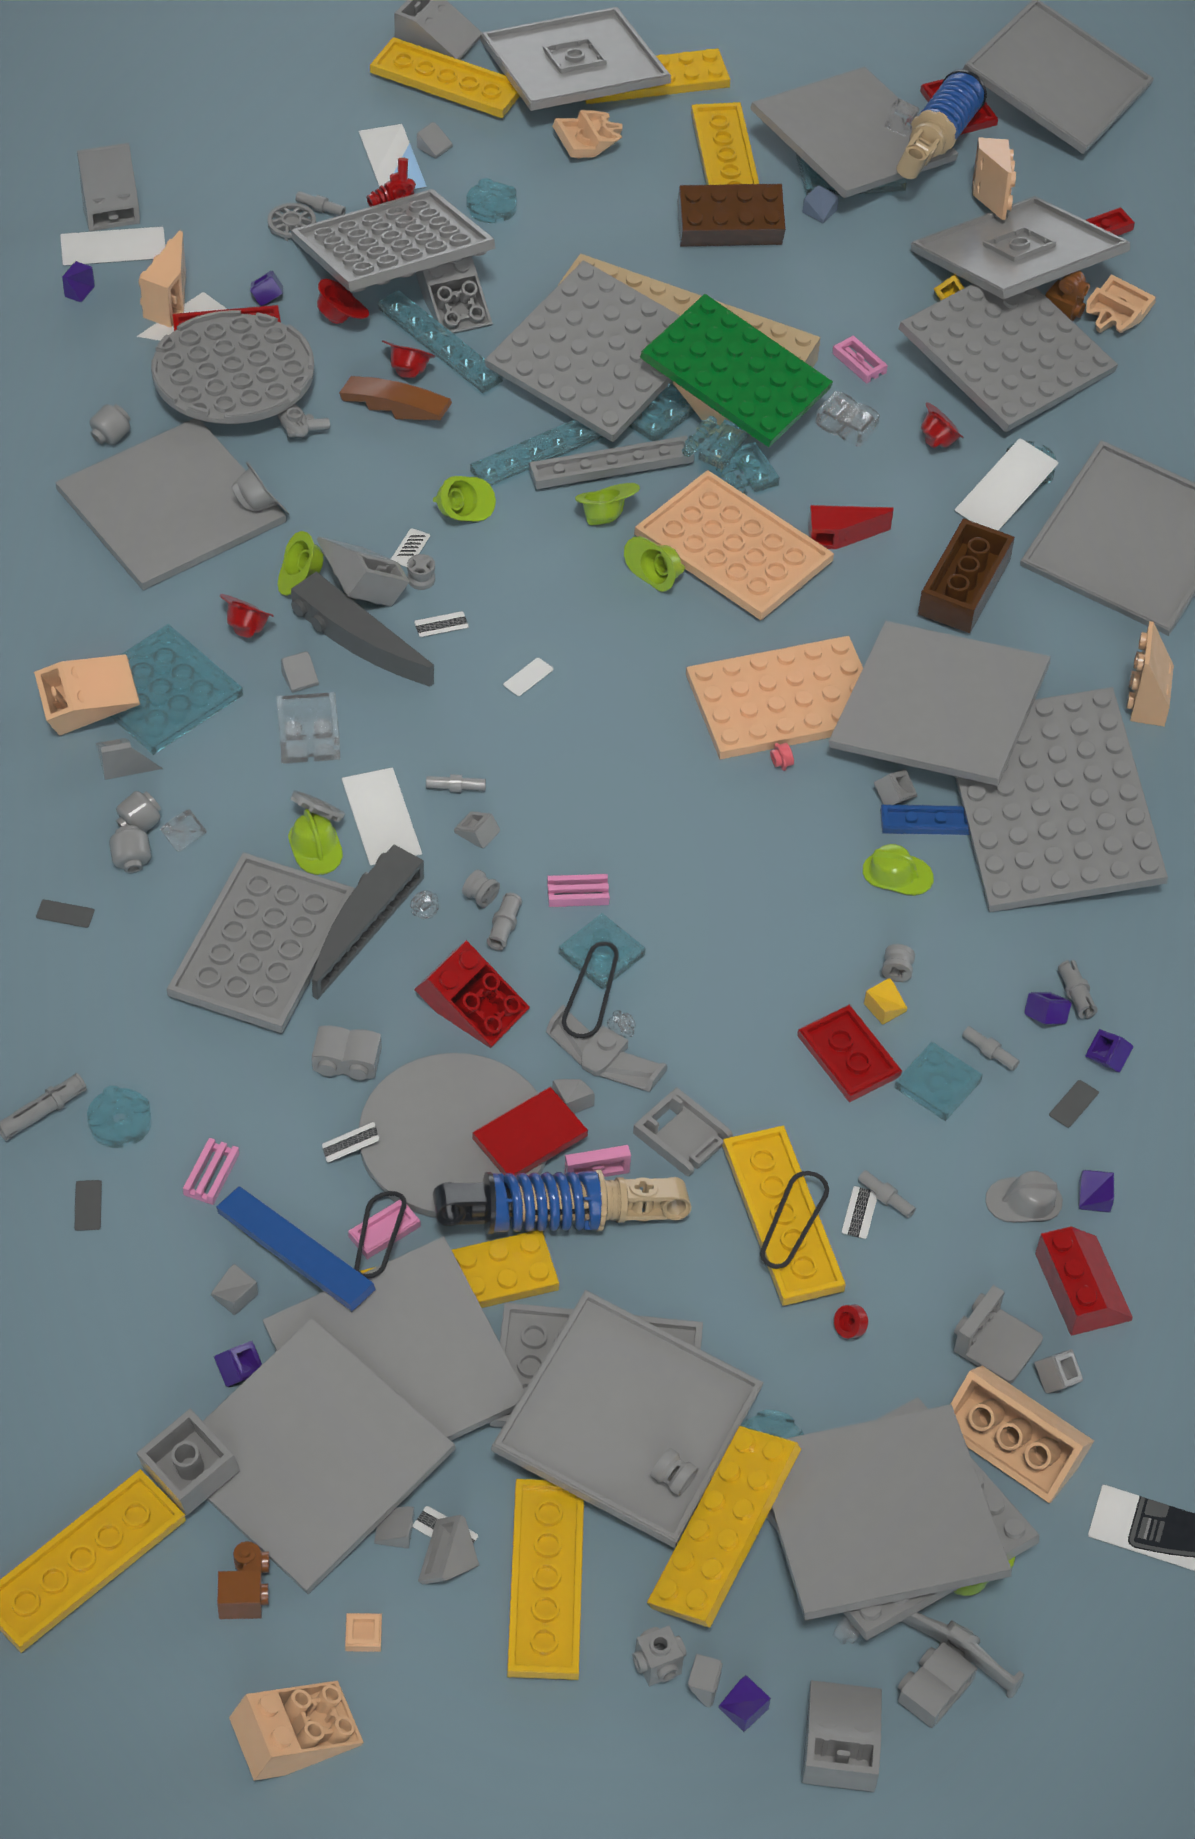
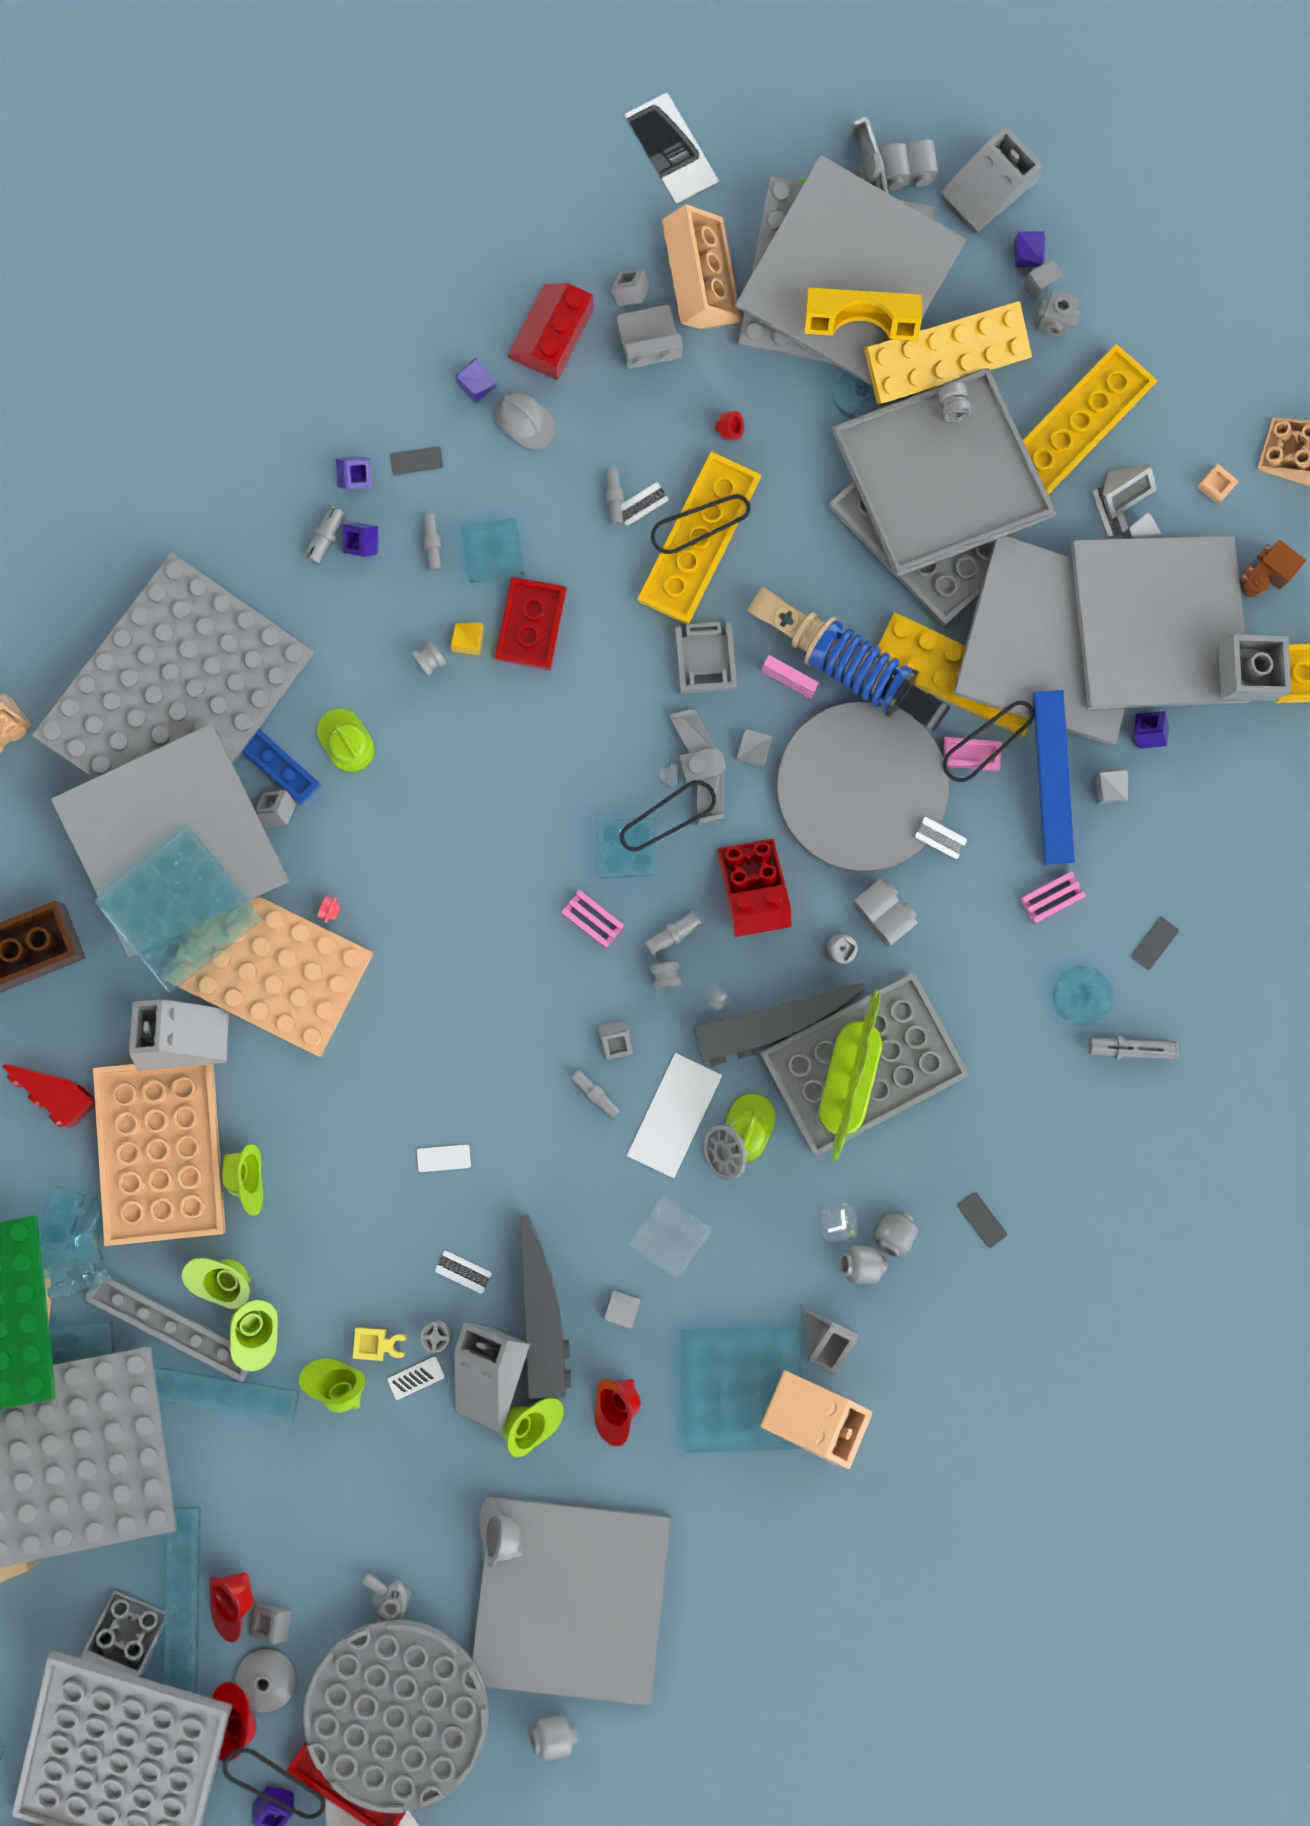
camera: 140 degrees left, 30 degrees up
(260, 910) = (851, 1076): none -> lime plant
(276, 284) = (280, 1770): none -> black piece
(340, 343) = (273, 1667): none -> light grey dish
(357, 1005) = (842, 948): none -> light grey tile
(368, 366) = (270, 1623): none -> light grey slope
(400, 398) = (284, 1559): dark orange slope -> none
(458, 540) = (372, 1344): none -> light yellow plate
(530, 1133) = (817, 735): red tile -> none
(550, 487) = (253, 1335): none -> lime piece
(797, 603) = (177, 1034): none -> light grey slope
(860, 1443) = (894, 312): none -> yellow arch
(882, 662) = (178, 910): none -> clear light blue plate

